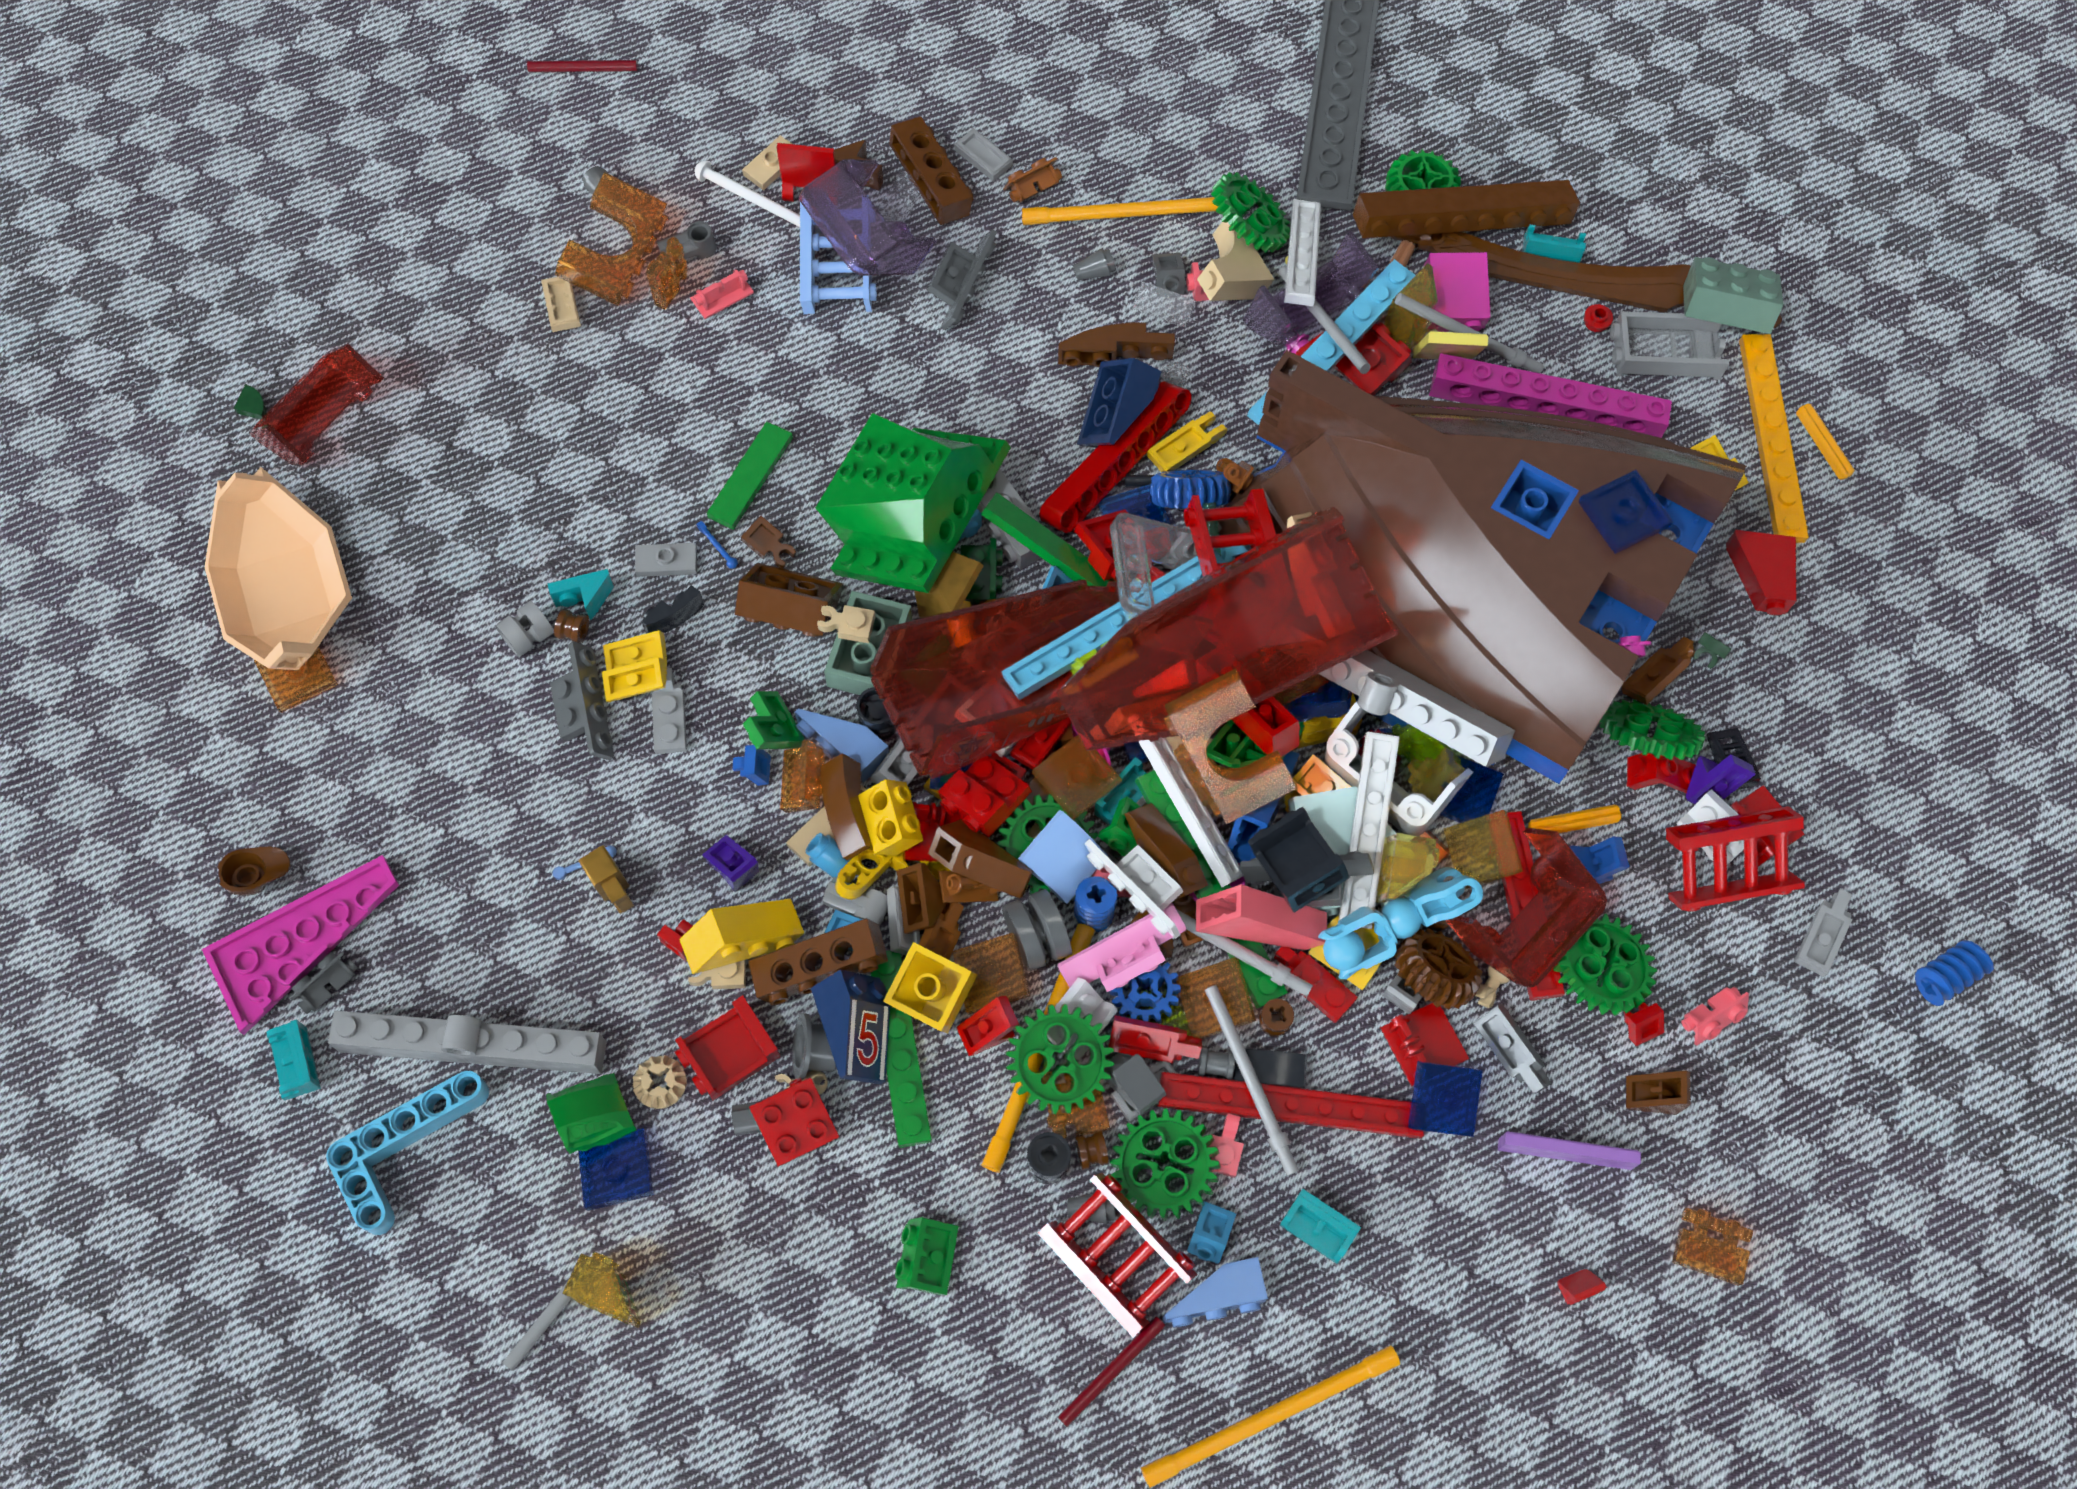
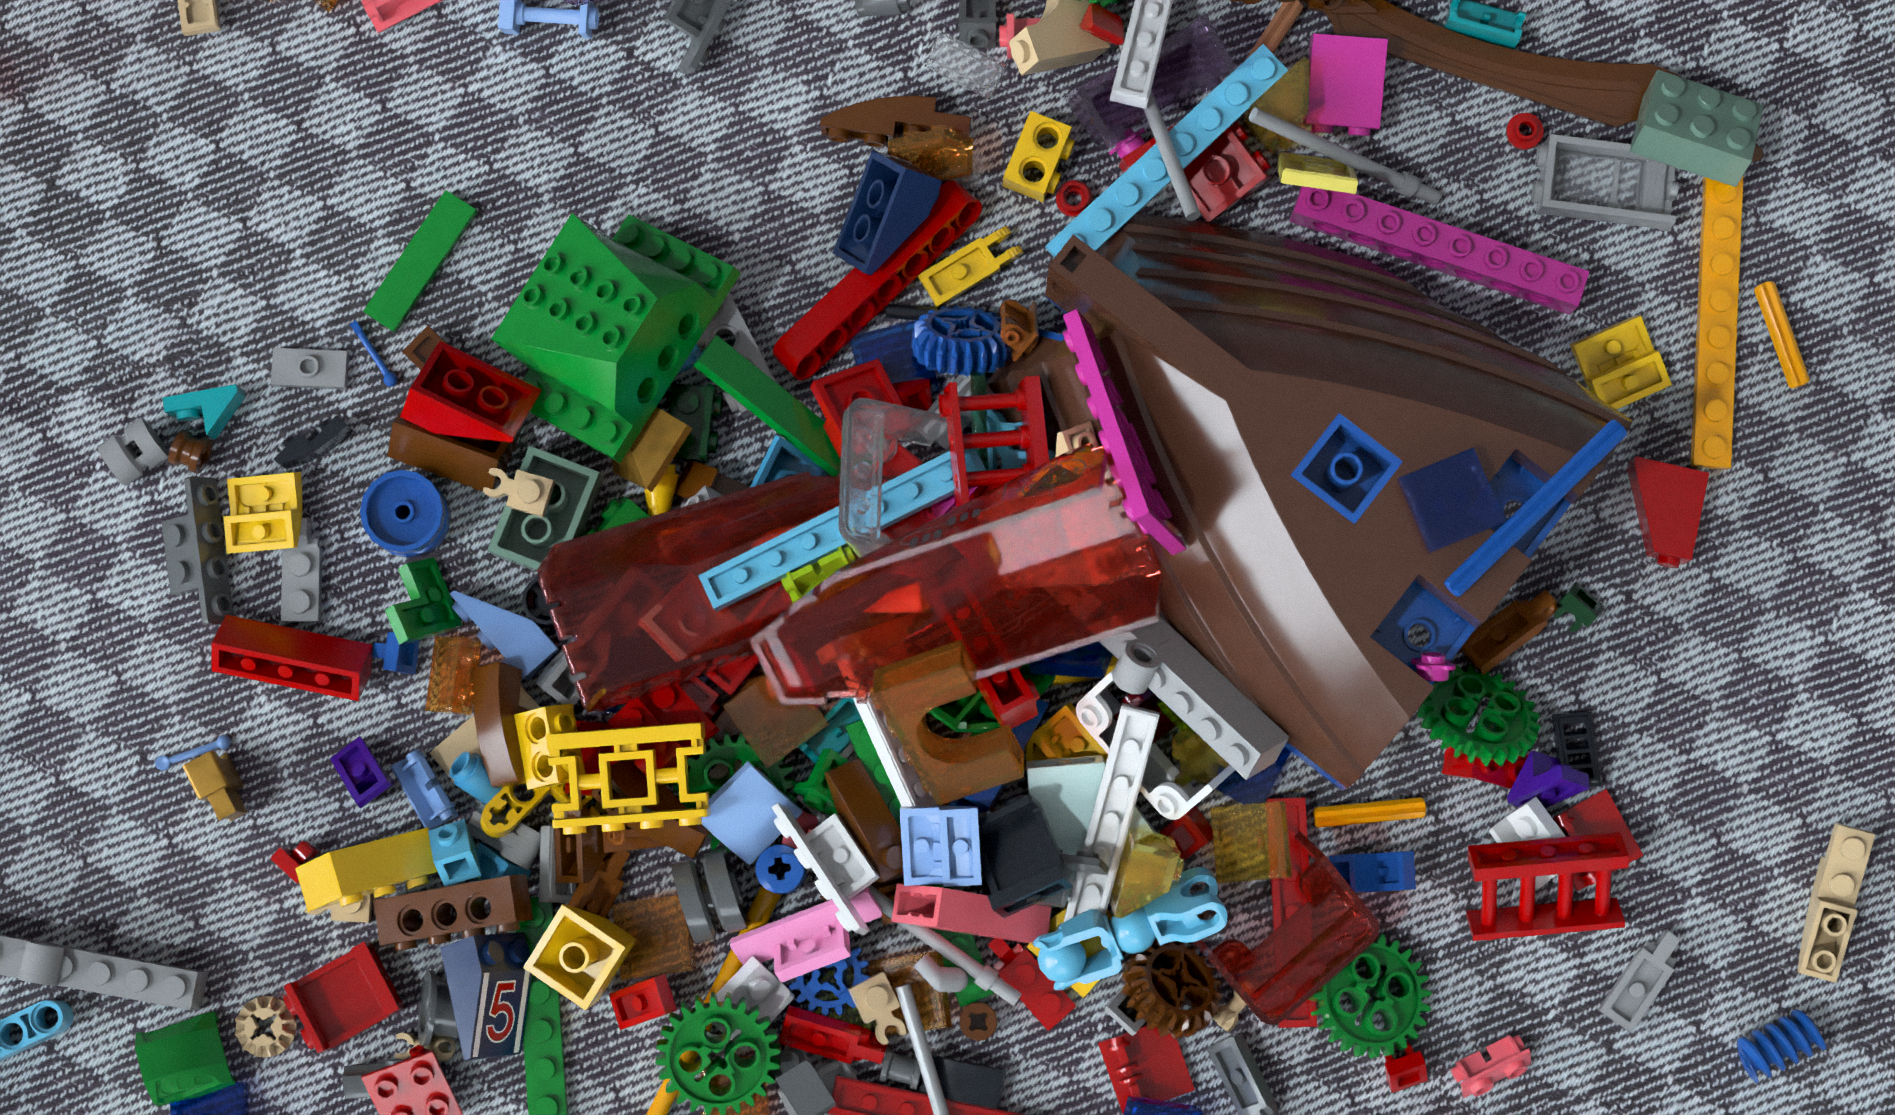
camera: 10 degrees right, 15 degrees up
(665, 774) = (291, 657): none -> red brick
(753, 655) = (390, 498): none -> blue wheel
(787, 876) = (424, 790): none -> medium blue hinge
(796, 557) = (468, 397): none -> red slope
(815, 912) = (454, 853): none -> medium azure brick
(955, 798) = (626, 747): none -> yellow fence
(1155, 351) = (935, 151): none -> clear orange bracket
(1189, 1004) = (875, 1002): none -> tan plate
(1228, 361) = (1031, 155): none -> yellow brick
(1232, 856) = (940, 845): none -> light blue slope
(1243, 976) = (941, 978): none -> light grey arm
(1257, 383) = (1073, 187): none -> red plate
(1267, 262) = (1103, 24): none -> red slope
(1365, 531) = (1119, 437): none -> dark pink wing
(1693, 513) = (1535, 508): none -> blue axle
(1967, 854) = (1833, 902): none -> tan slope

